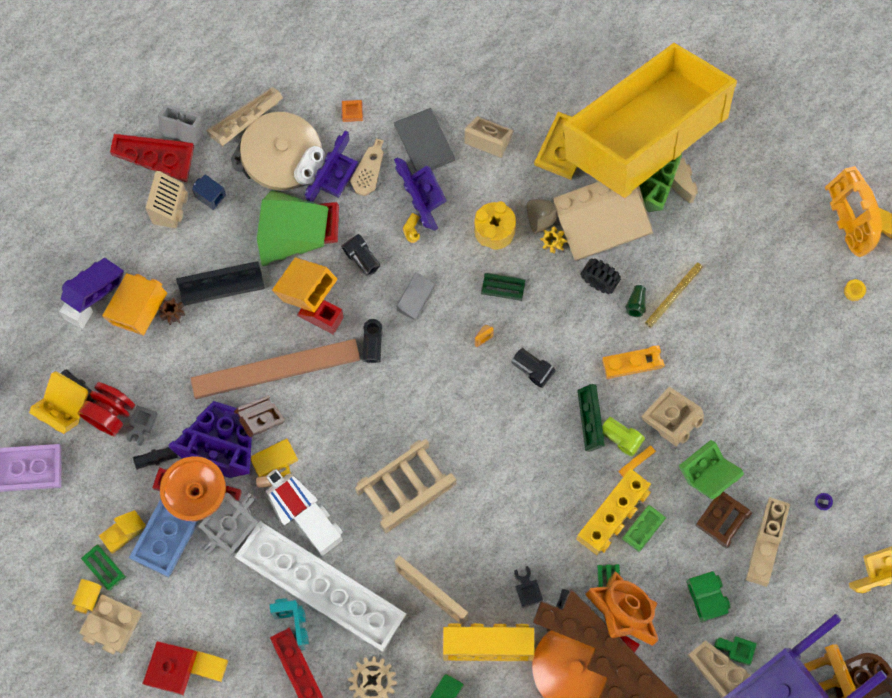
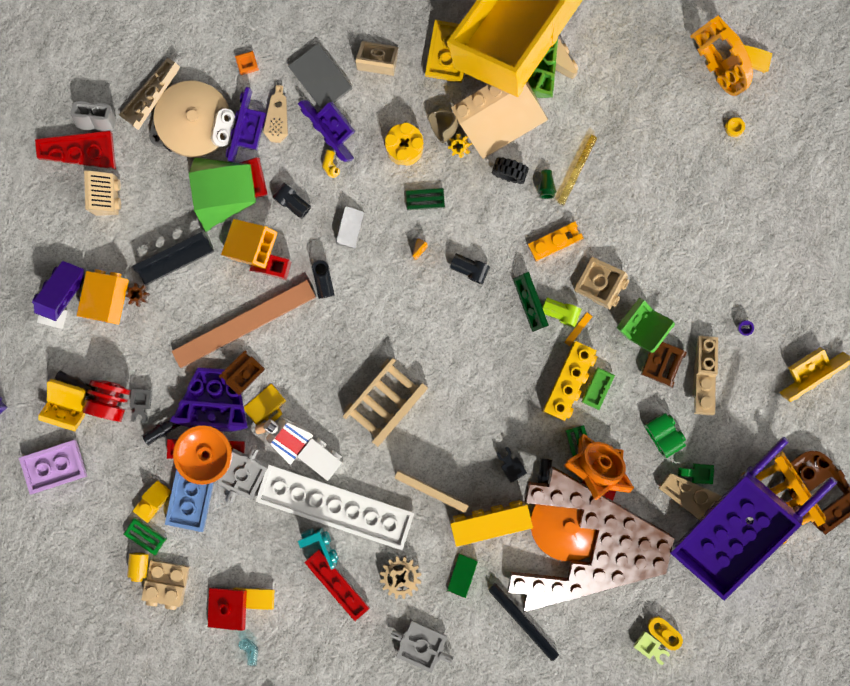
camera: 15 degrees left, 15 degrees up
(208, 191) = (137, 174): dark blue brick -> none

